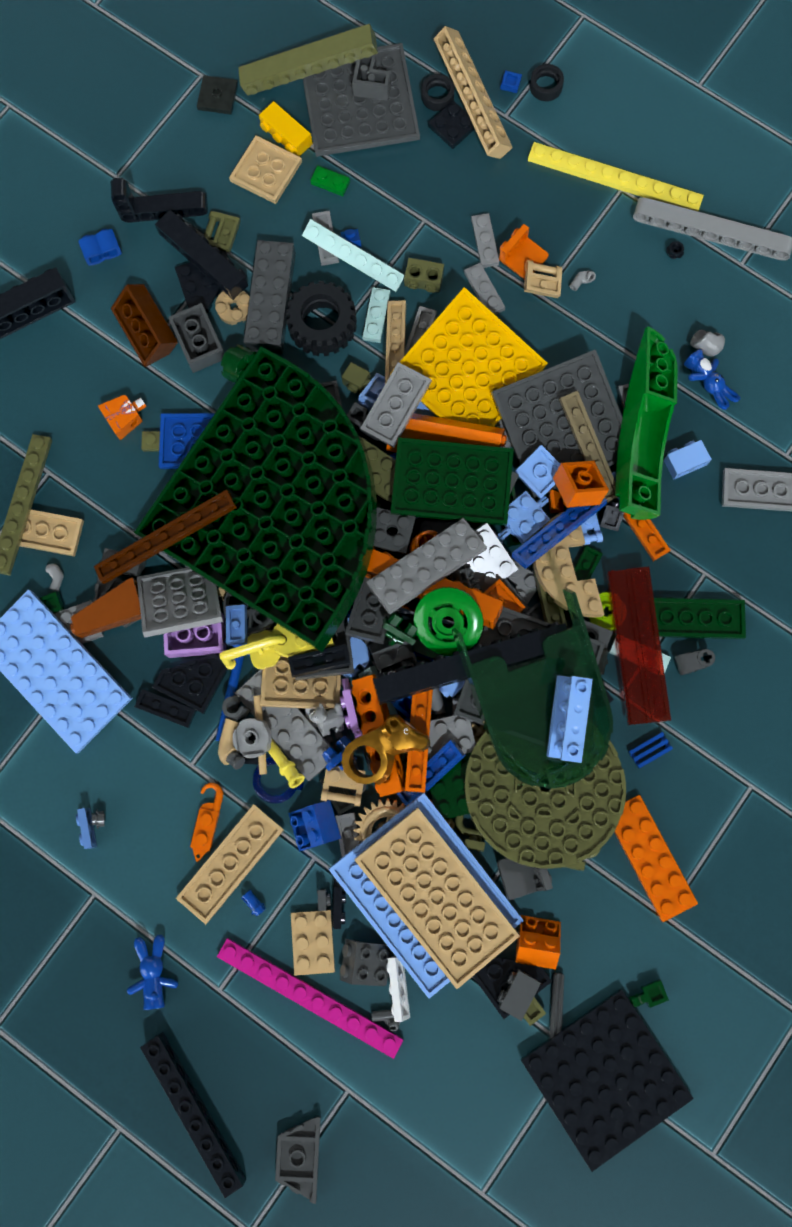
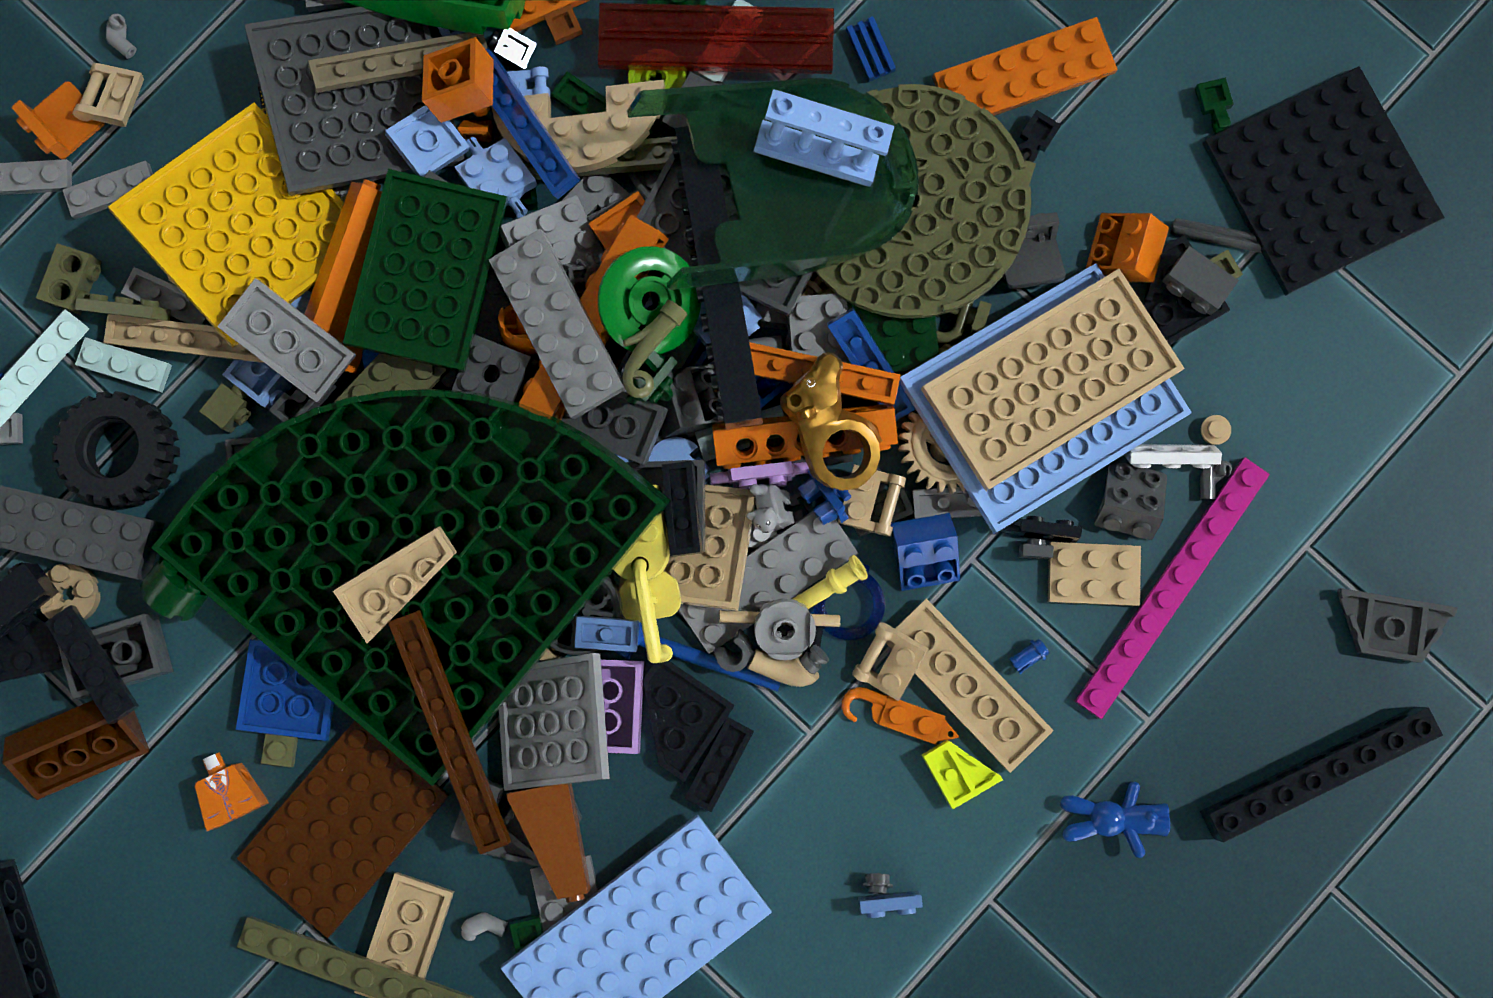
camera: 85 degrees left, 5 degrees up
(105, 484) = (342, 829): none -> reddish brown plate
(172, 864) = (958, 773): none -> neon yellow wing
(188, 324) = (91, 664): none -> black plate
(237, 816) = (899, 666): none -> tan plate
(249, 486) = (389, 585): none -> tan wing
(409, 308) = (123, 306): none -> olive plate
(420, 1017) = (1215, 430): none -> tan plate
(421, 623) = (648, 340): none -> olive plant
(607, 871) = (1038, 134): none -> black plate
(633, 546) = (563, 24): none -> dark orange plate

